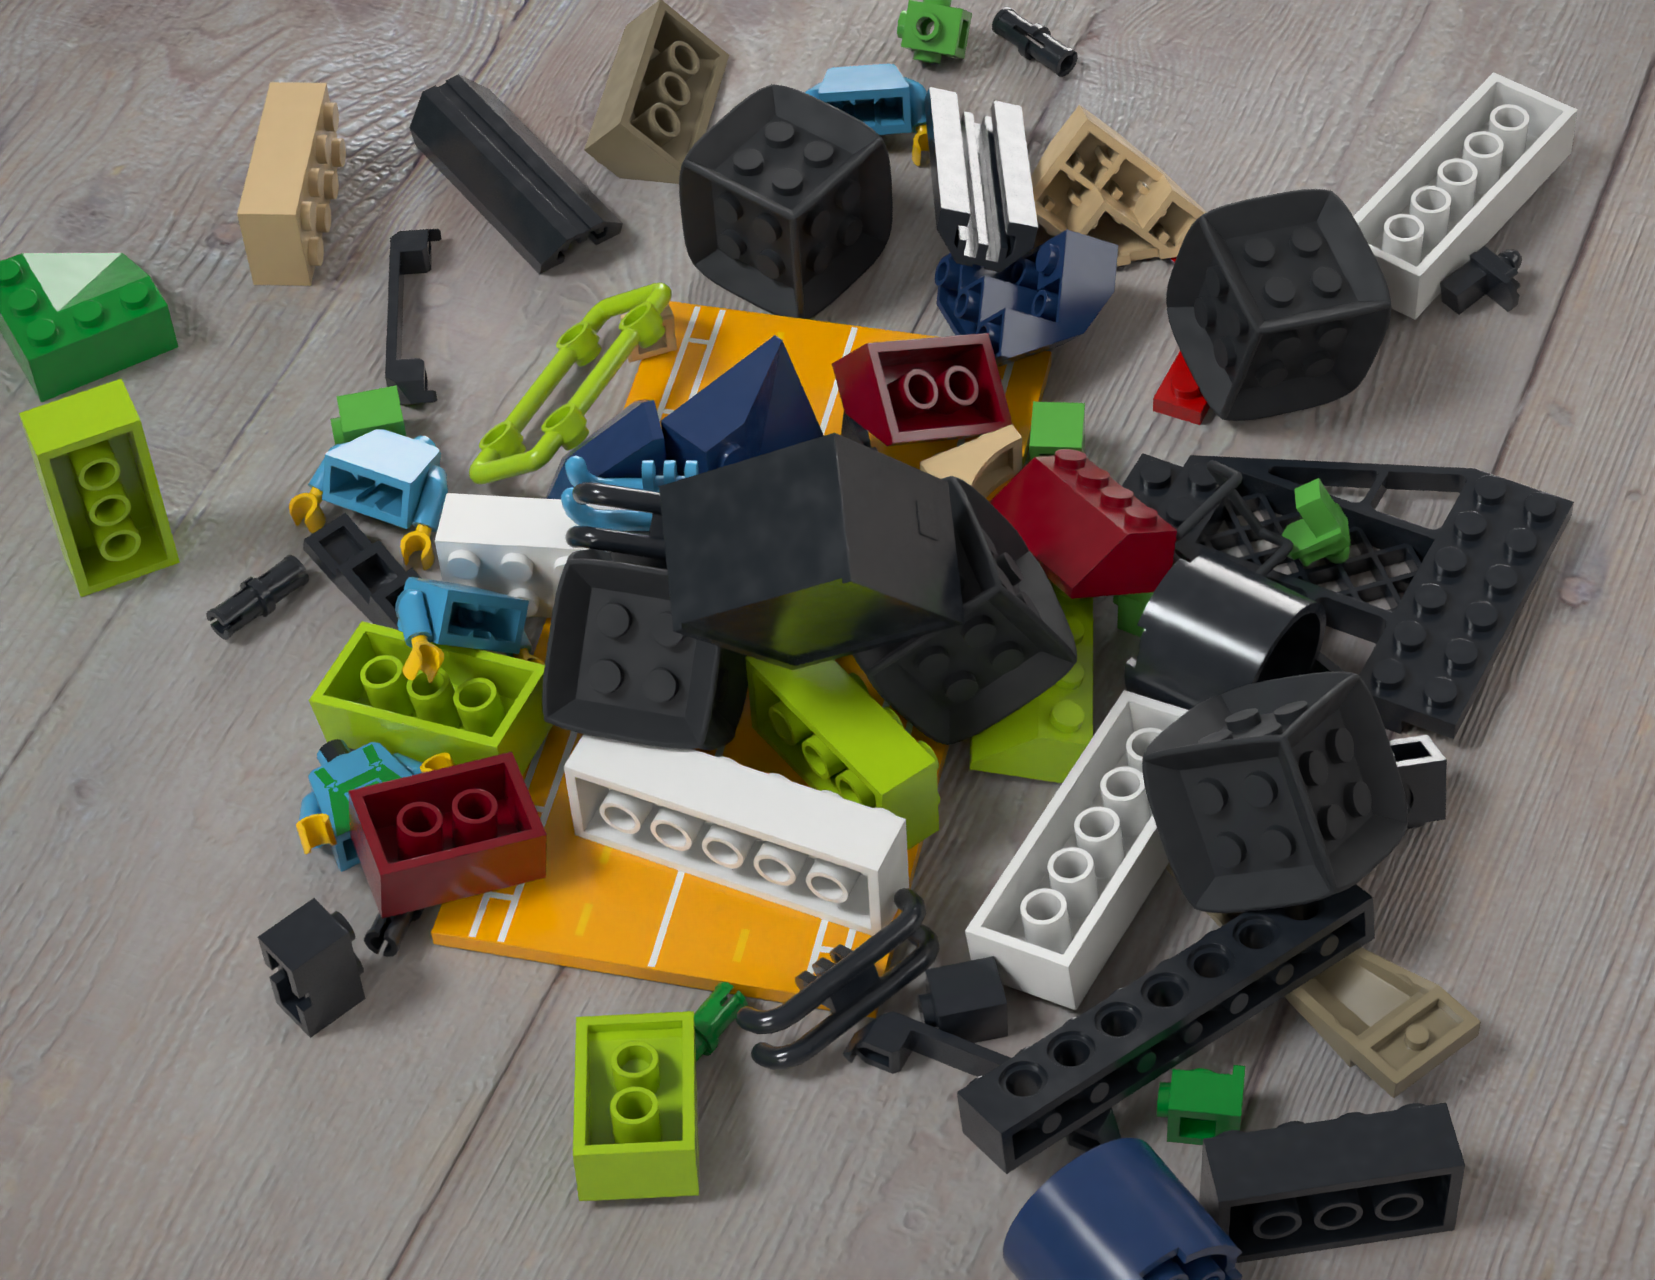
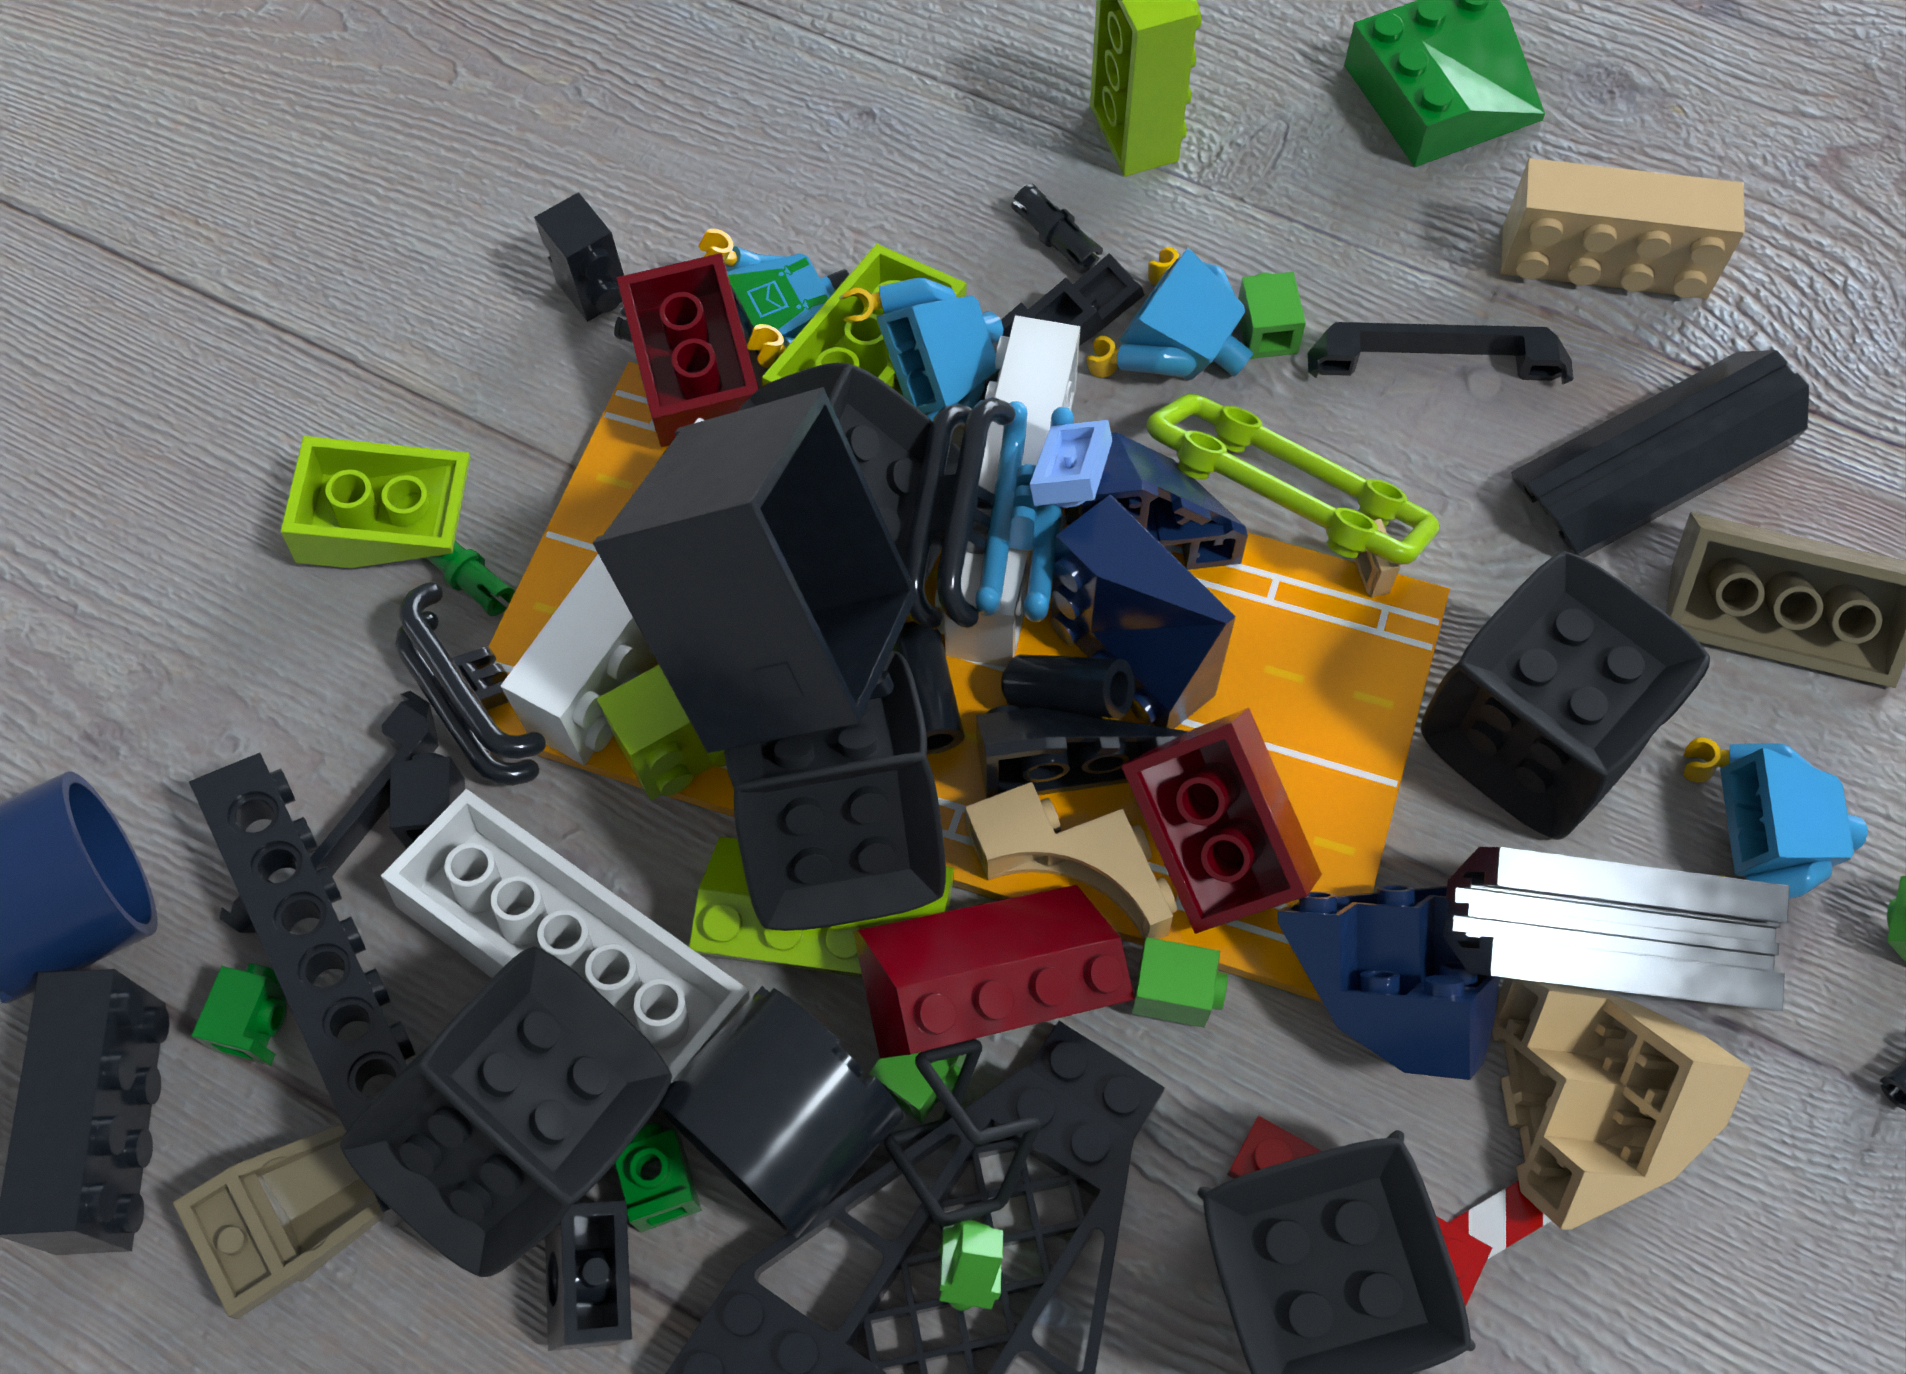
camera: 95 degrees right, 15 degrees up
(636, 435) = (1071, 464): none -> light blue plate

